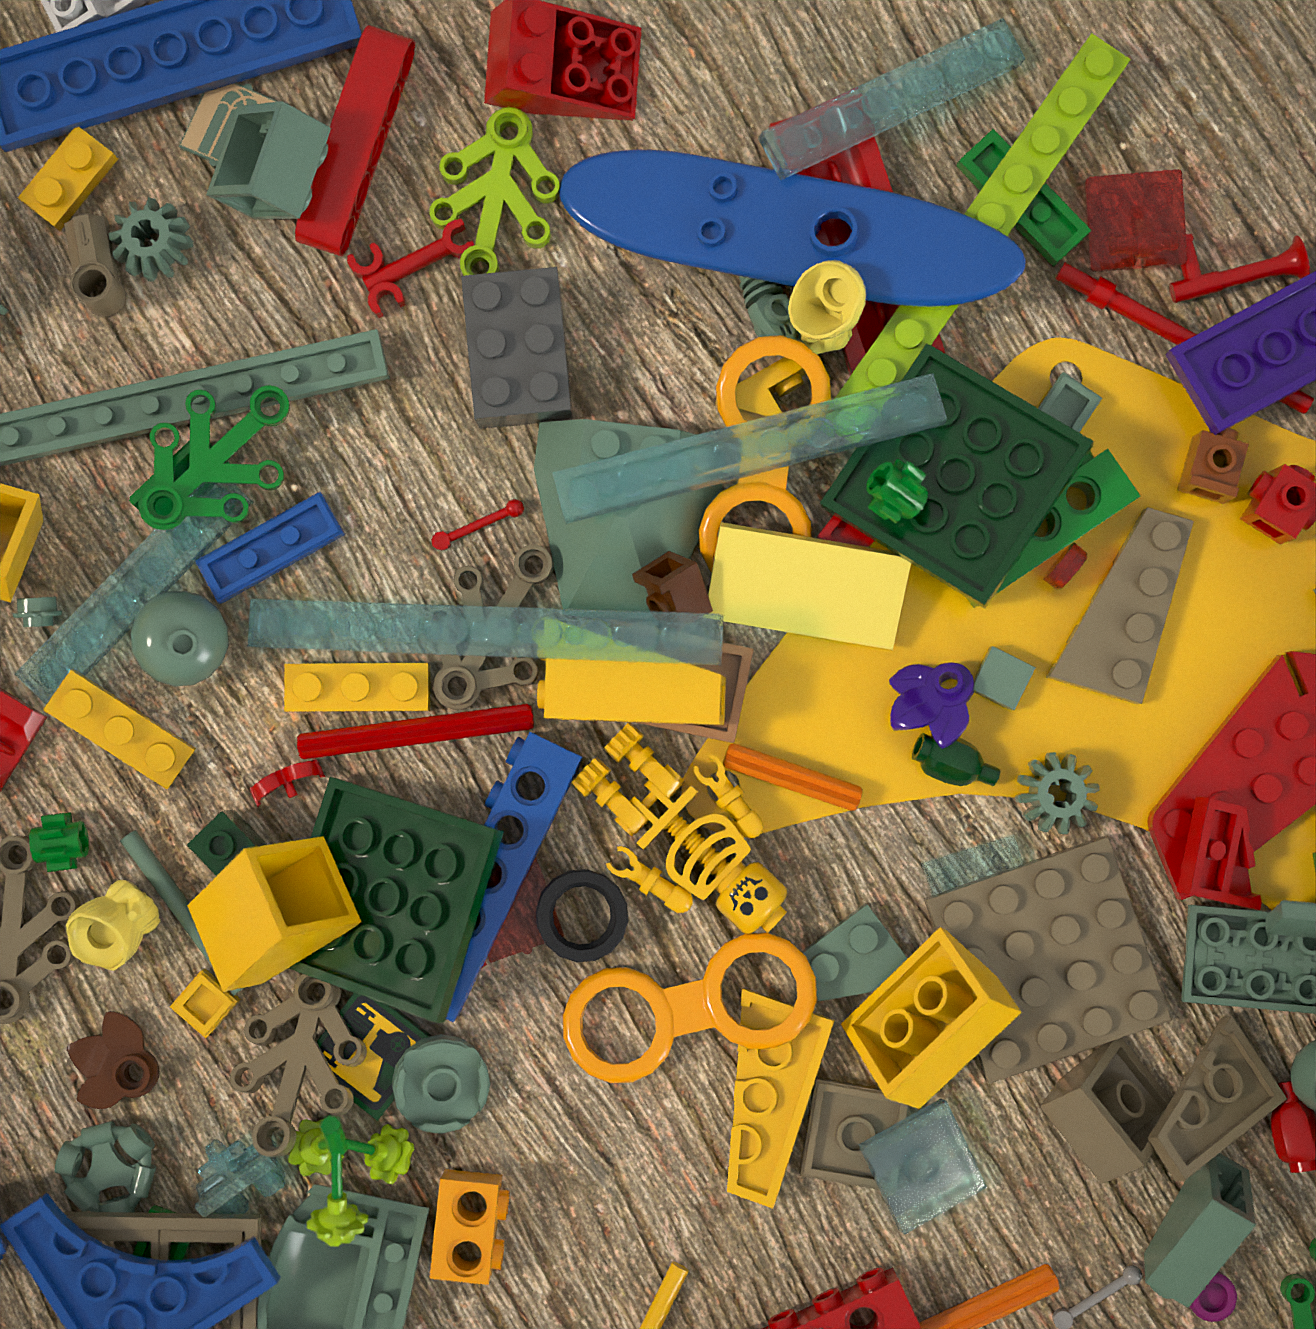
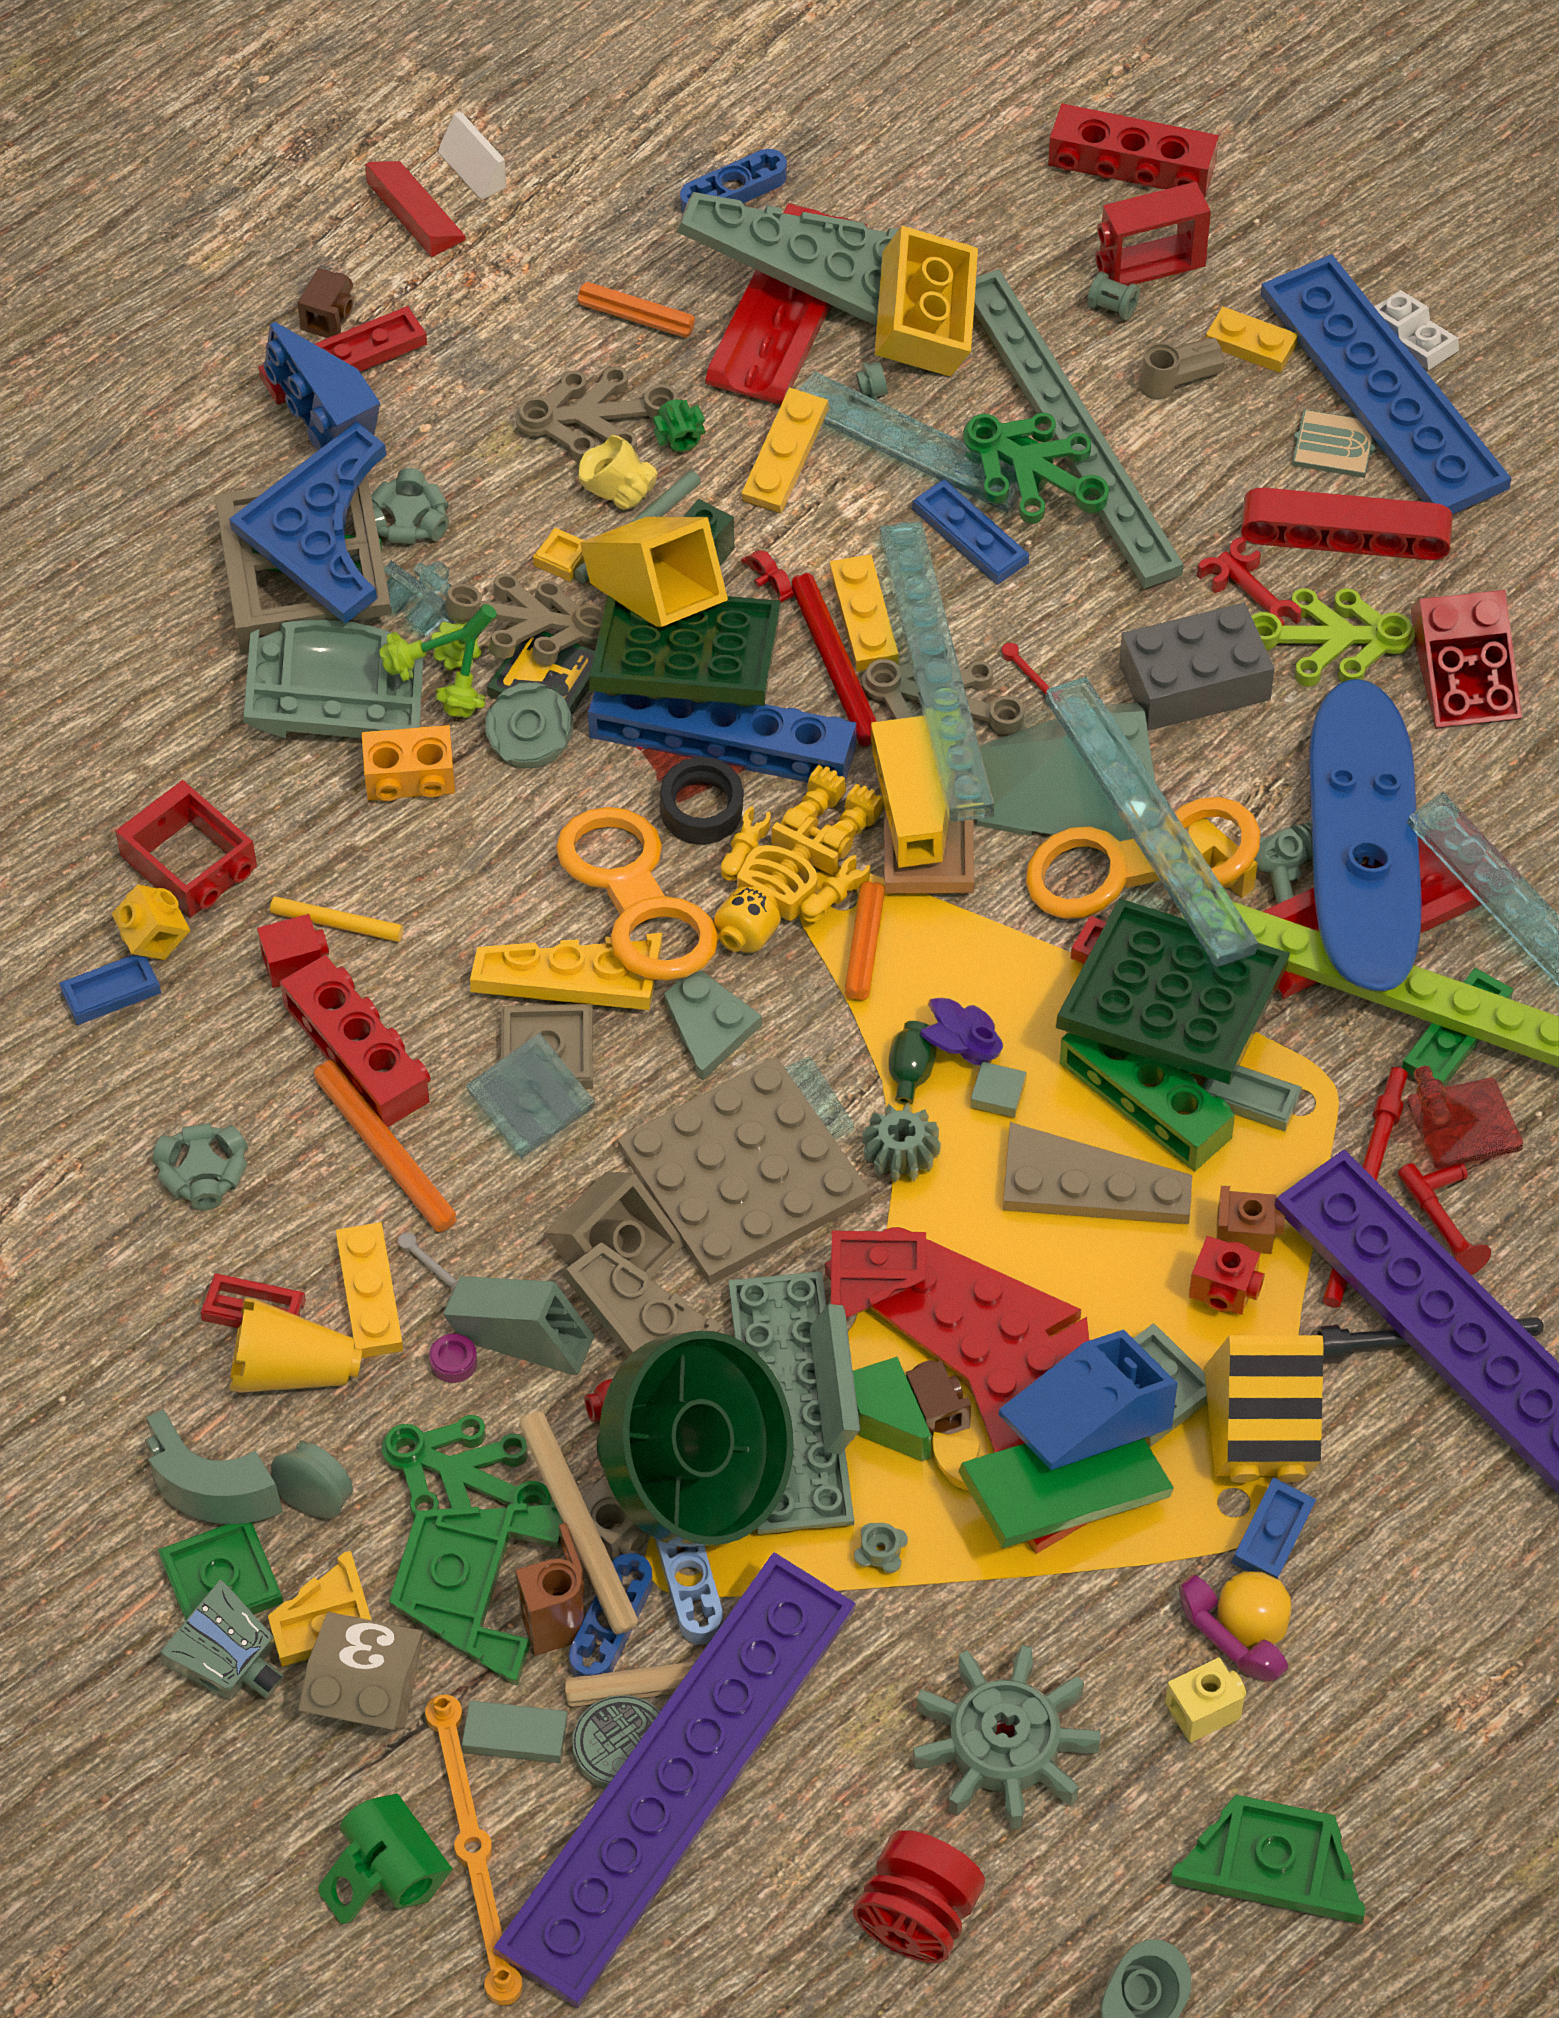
camera: 80 degrees right, 30 degrees down
(107, 1061) = (497, 500): reddish brown plate -> none
(139, 227) = (1214, 399): sand green gear -> none
(179, 638) = (873, 475): sand green cylinder -> none
(269, 161) = (1303, 455): sand green piece -> none
(673, 585) = (1011, 809): reddish brown brick -> none
(807, 585) = (1041, 913): light yellow tile -> none
(827, 305) = (1295, 863): light yellow hair -> none
(897, 490) = (1142, 929): green gear -> none
(929, 1019) = (665, 1066): yellow slope -> none
(1066, 566) = (1117, 1114): clear red tile -> none

